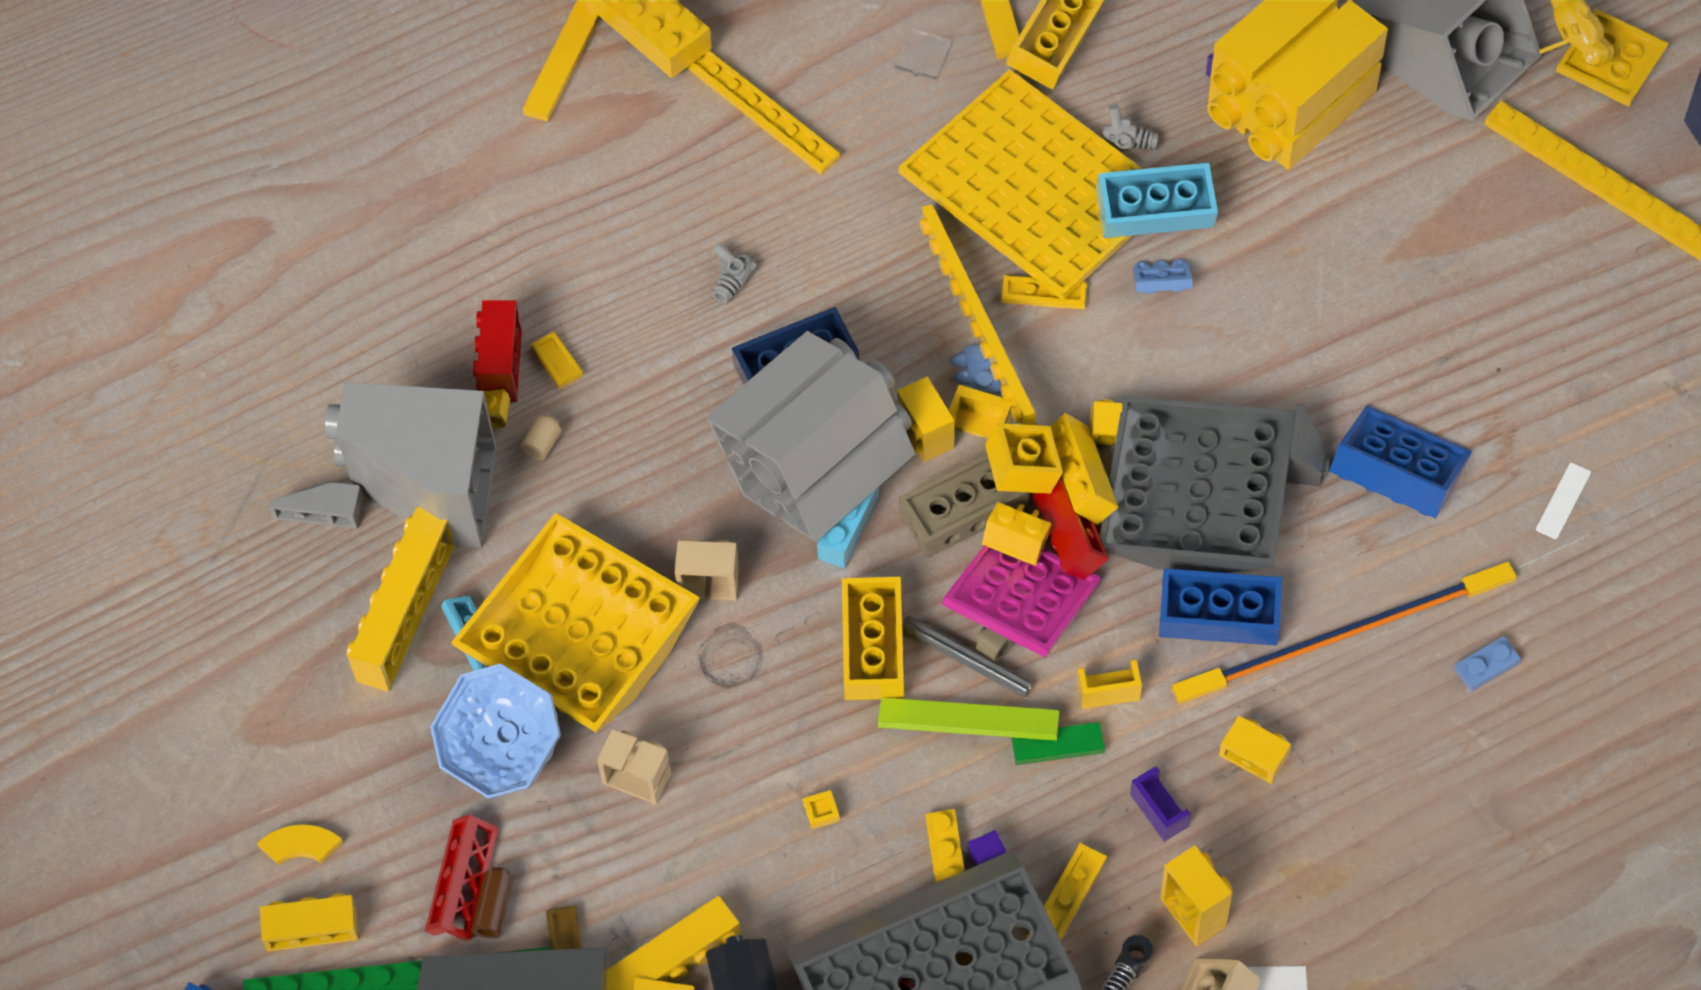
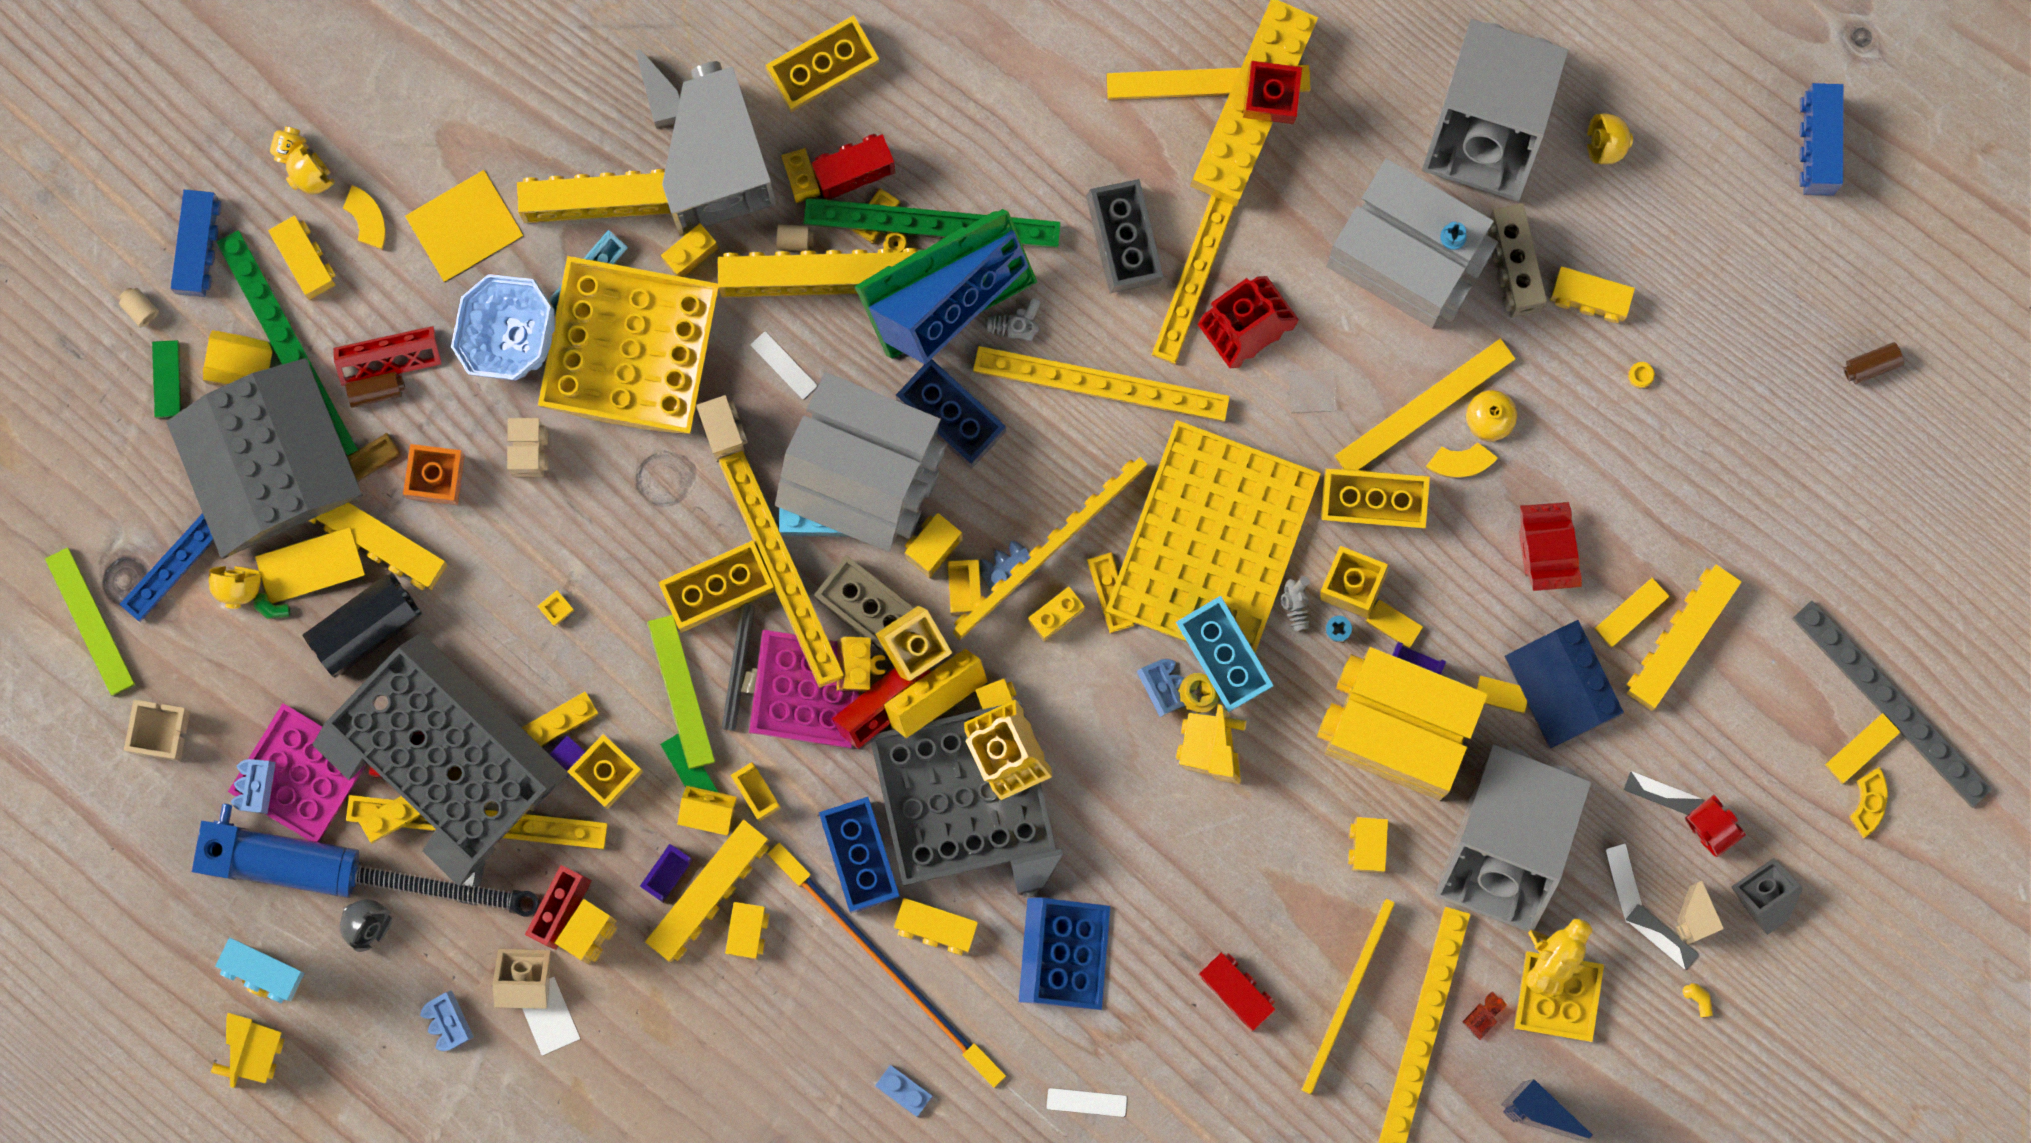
camera: 65 degrees right, 20 degrees up
(179, 890) = (285, 142): none -> yellow head
(219, 876) = (307, 171): none -> yellow cylinder
(360, 752) = (464, 225): none -> yellow piece
(377, 336) = (822, 63): none -> yellow brick
(503, 535) = (689, 251): none -> yellow brick
(590, 309) = (917, 221): none -> green plate
(594, 417) = (801, 274): none -> yellow brick
(595, 343) = (895, 237): none -> yellow plate
(617, 873) = (434, 474): none -> orange brick
(667, 500) = (784, 365): none -> white sticker
(670, 309) = (943, 288): none -> blue piece
(693, 146) = (1124, 236): none -> dark grey brick
(828, 224) = (1101, 384): none -> yellow plate
(829, 78) = (1247, 320): none -> red slope
(902, 563) = (781, 569): none -> yellow plate
(1024, 819) = (605, 771): none -> yellow brick
(1045, 340) = (1056, 614): none -> yellow brick
(1109, 737) = (707, 810): none -> yellow panel
(1131, 76) = (1354, 582): none -> yellow brick
(1153, 923) = (558, 906): none -> red brick
(1171, 107) = (1336, 621): none -> dark azure bush
(1171, 416) = (1006, 750): none -> yellow slope
(1178, 241) = (1190, 684): none -> yellow gear
(1184, 66) = (1394, 624): none -> yellow tile
(1197, 772) = (707, 891): none -> yellow brick
(1245, 246) = (1209, 745): none -> yellow piece
(1324, 566) = (935, 926): none -> yellow brick
(1398, 157) = (1369, 845): none -> yellow brick
(1501, 321) = (1237, 991): none -> red brick
(1545, 229) = (1348, 996): none -> yellow tile
(1610, 125) = (1482, 1017): none -> clear red plate

